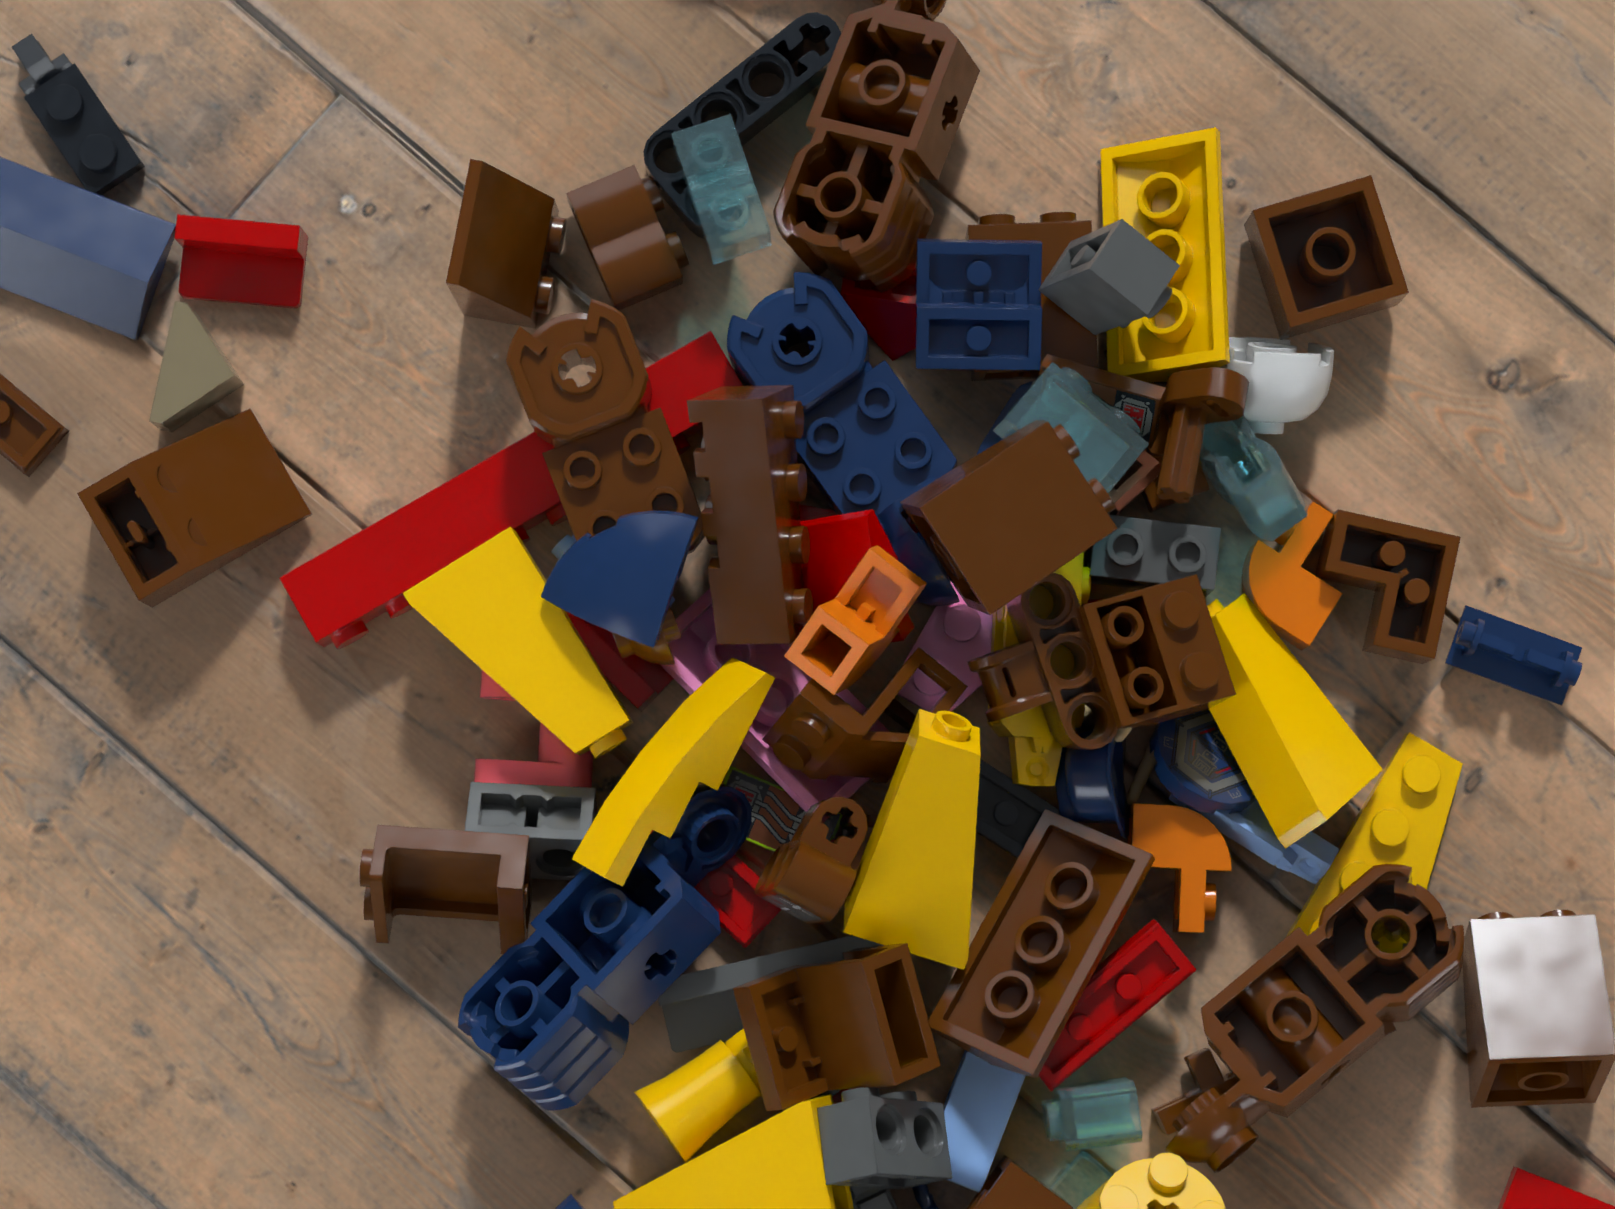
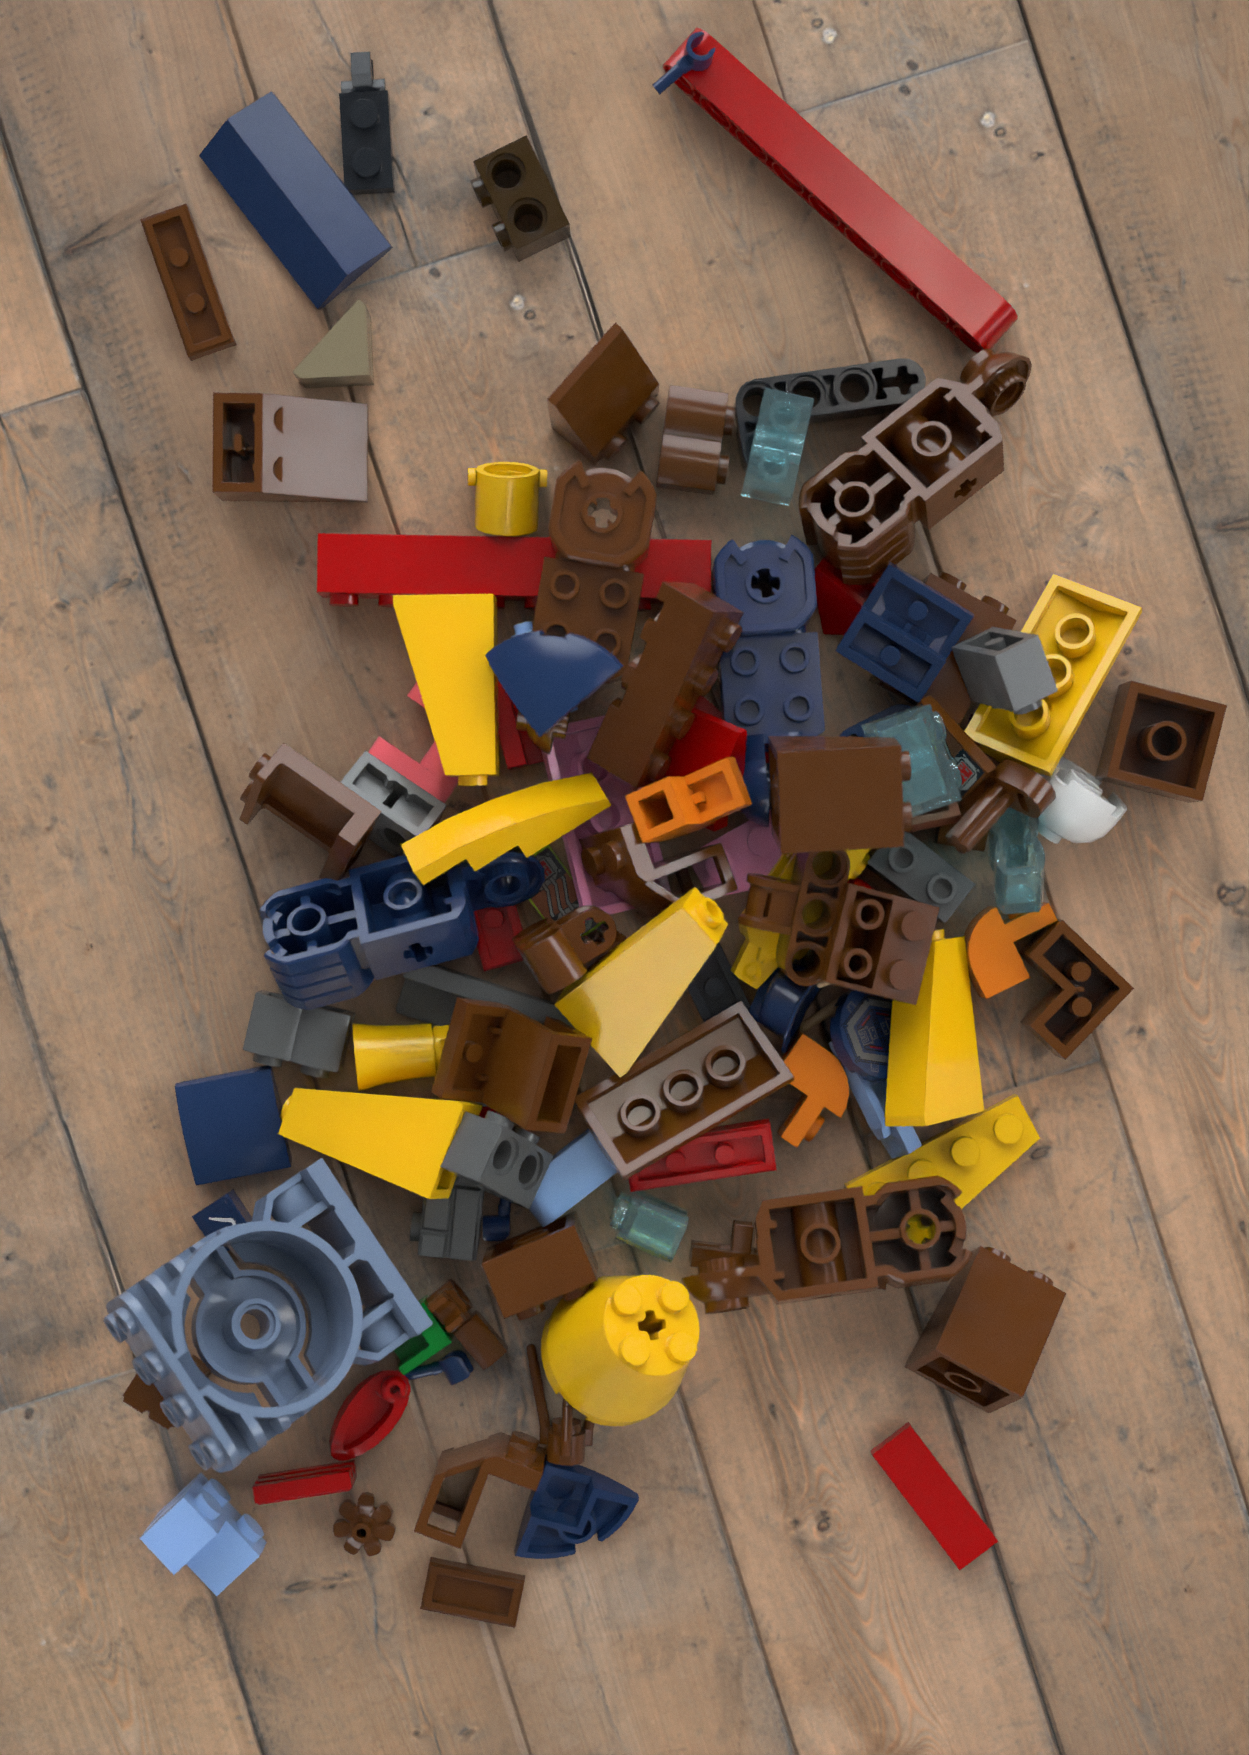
camera: 30 degrees right, 5 degrees up
(241, 261) = (421, 298): red panel -> none
(294, 84) = (529, 196): none -> dark brown brick
(461, 417) = (506, 497): none -> yellow piece
(582, 1140) = (306, 1037): none -> dark grey brick
(1514, 655) = (1120, 1087): dark blue hinge -> none

